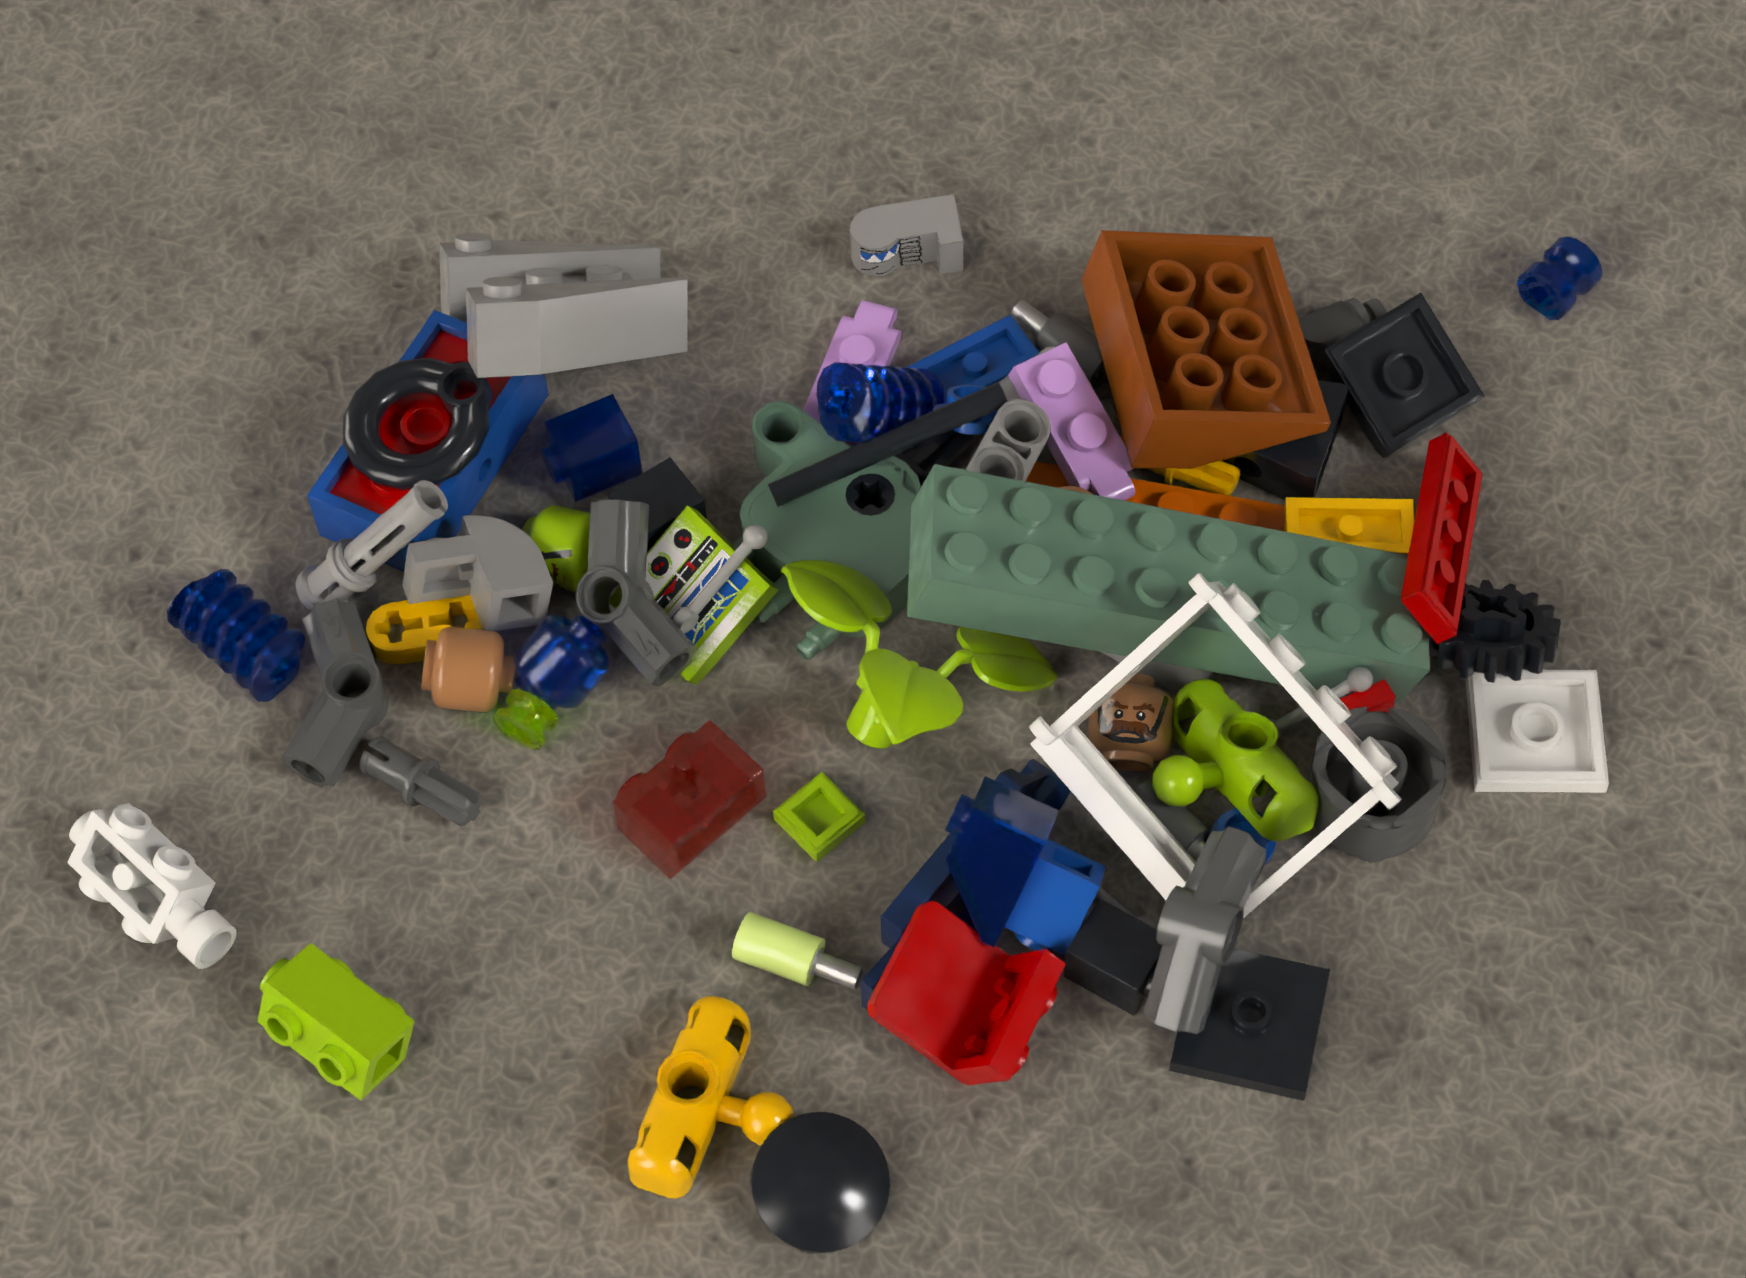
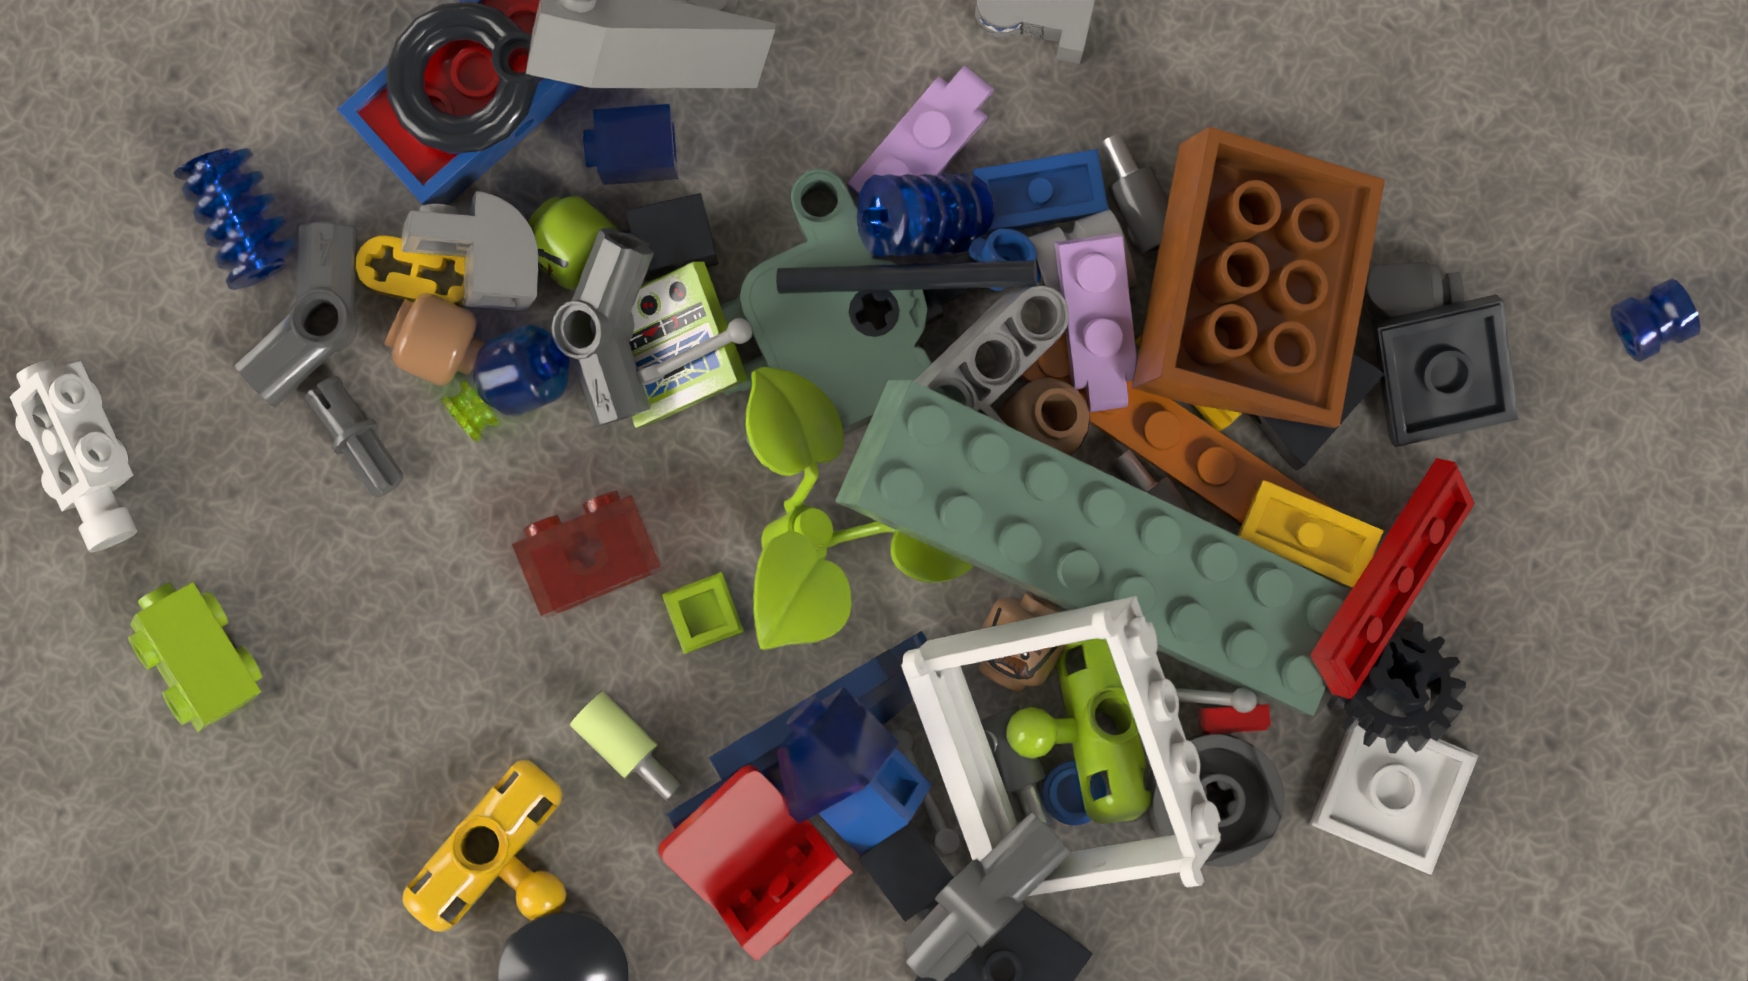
camera: 20 degrees right, 25 degrees up
(355, 563) = (364, 193): light grey pin -> none

